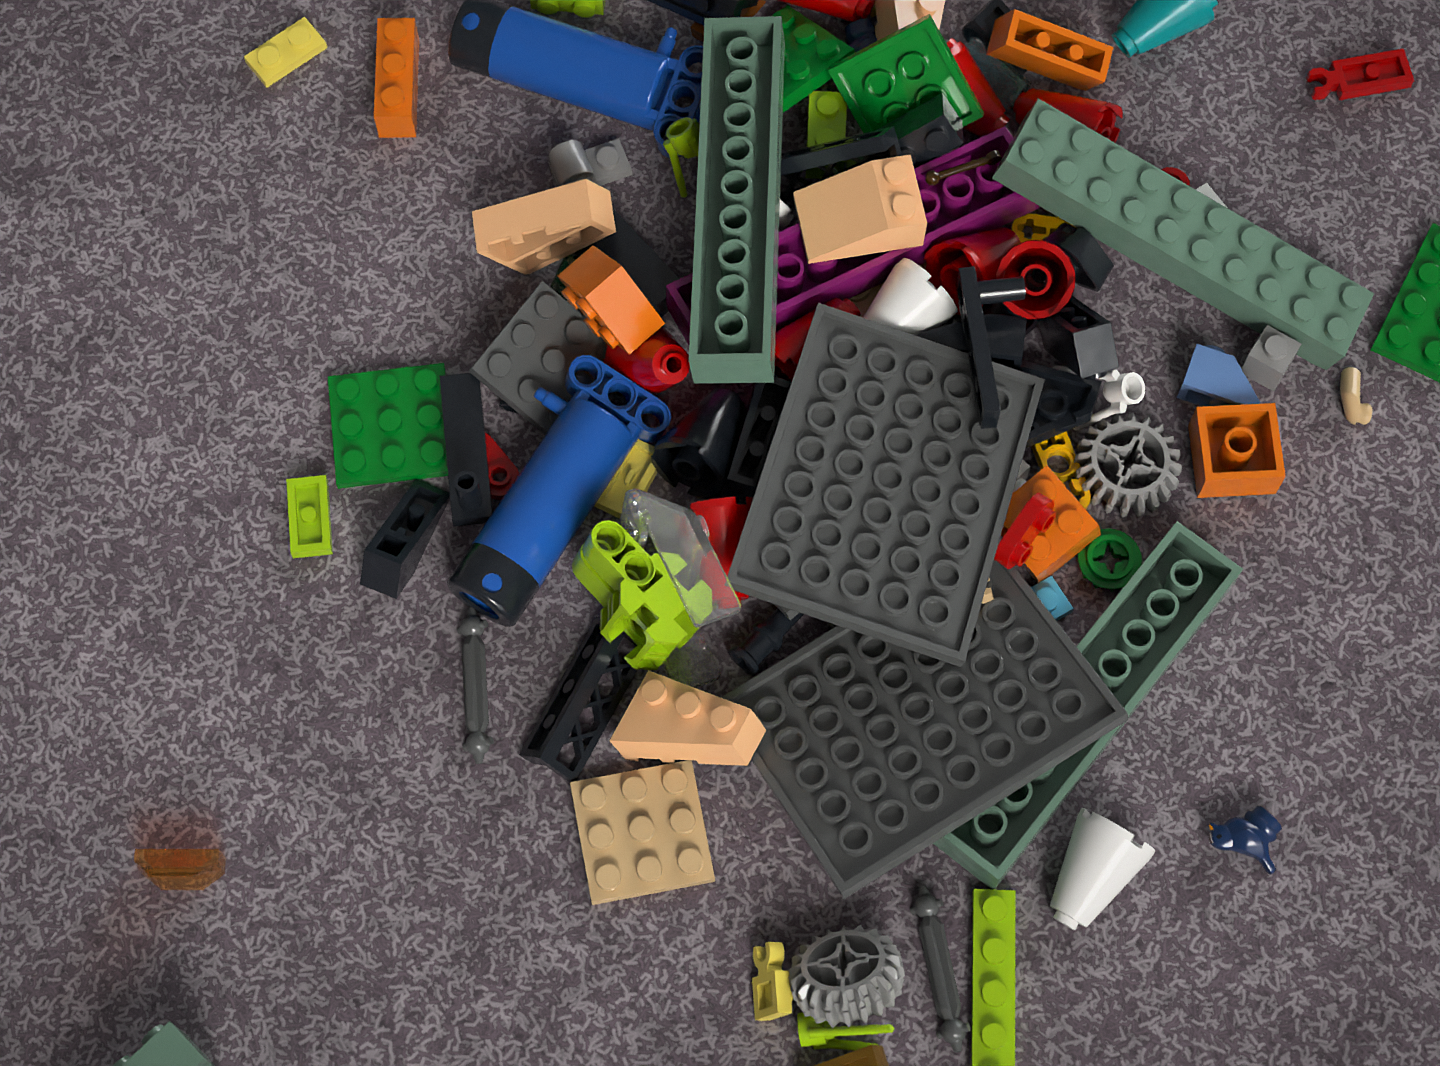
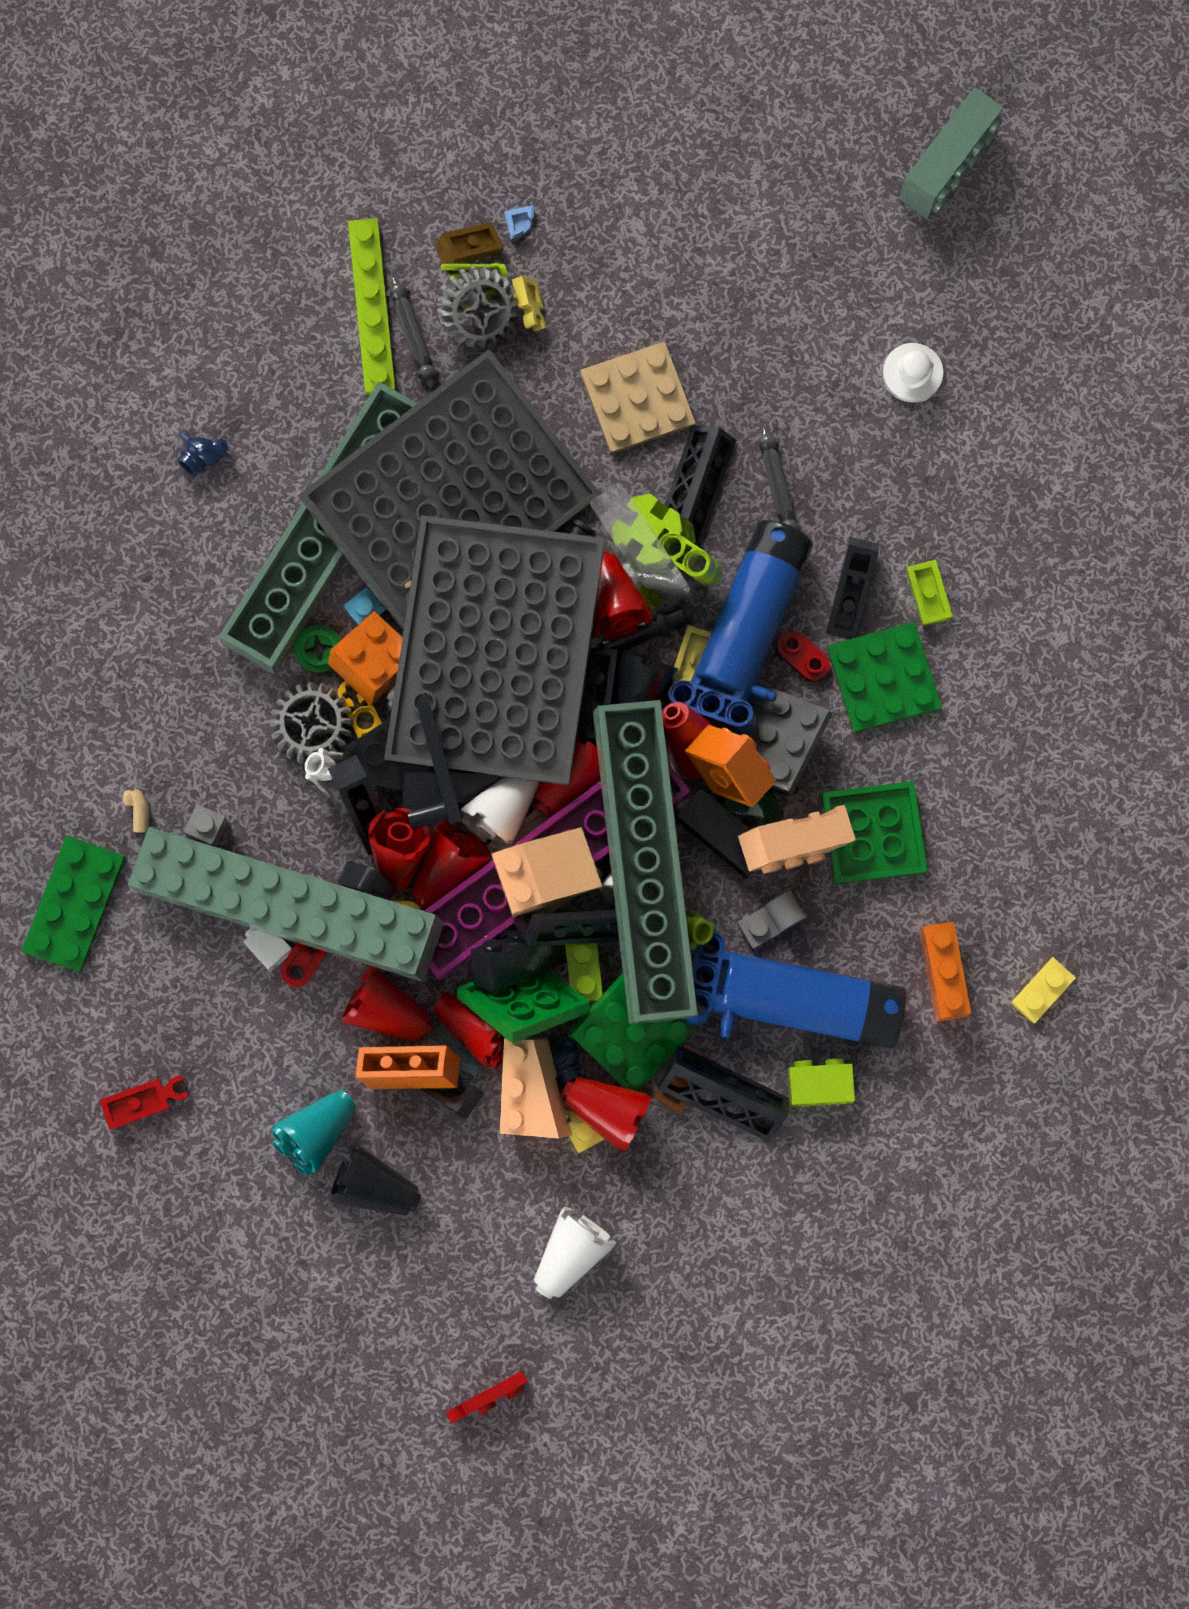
camera: 165 degrees right, 10 degrees up
(181, 867) = (960, 319): clear orange slope -> none
(260, 811) = (912, 372): none -> white plate
(434, 246) = (885, 833): none -> green plate
(466, 449) = (821, 655): black piece -> none
(686, 723) = (615, 461): light nougat wedge -> none
(933, 177) = (491, 917): dark brown hinge -> none
(1016, 543) = (379, 639): red plate -> none
(1095, 868) = (308, 412): white cone -> none
(1215, 379) = (248, 802): medium blue slope -> none
(1236, 450) = (228, 742): orange brick -> none

